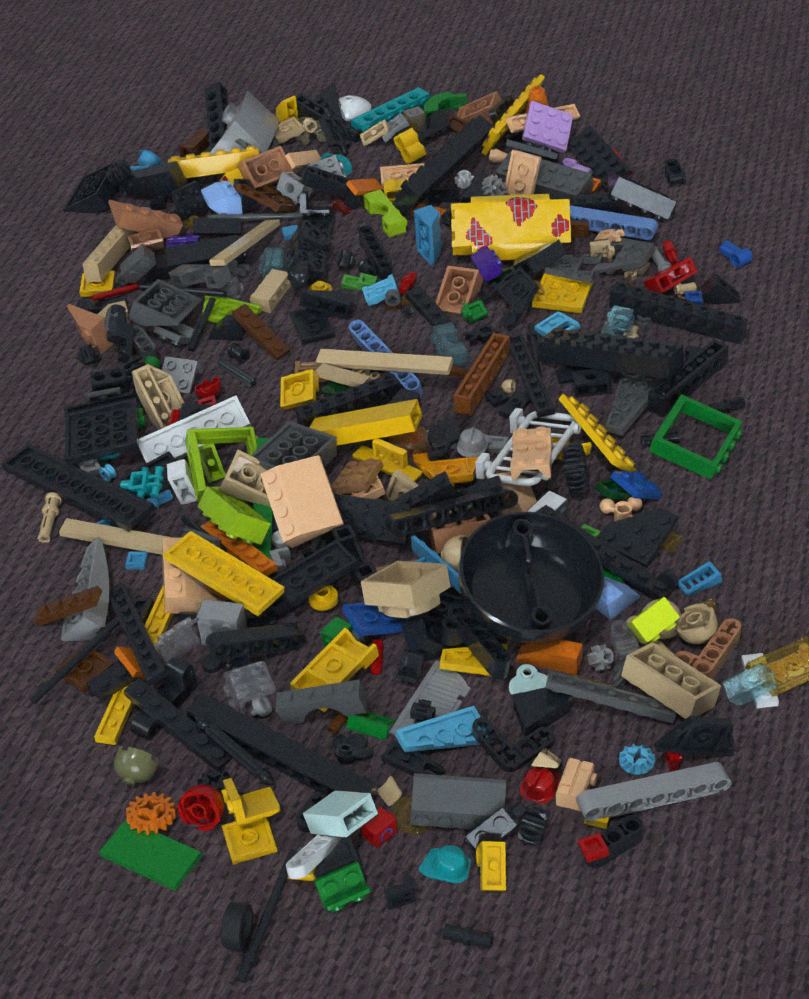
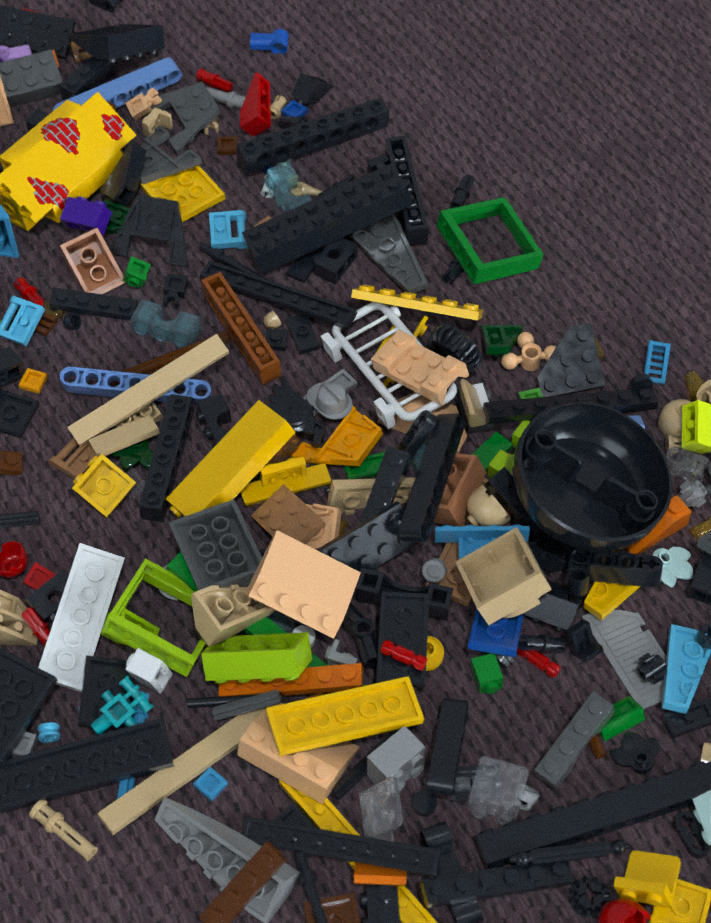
camera: 55 degrees left, 15 degrees up
(298, 576) = (403, 655): none -> red axle
(336, 662) = (534, 702): yellow piece -> none
(344, 323) = (33, 380): none -> light orange tile
(386, 558) = (434, 570): none -> light grey tile
(386, 646) = (542, 643): none -> black pin
(392, 302) = (46, 319): dark grey bush -> none
(539, 497) = (471, 404): none -> tan slope
(637, 484) = (507, 322): blue plate -> none

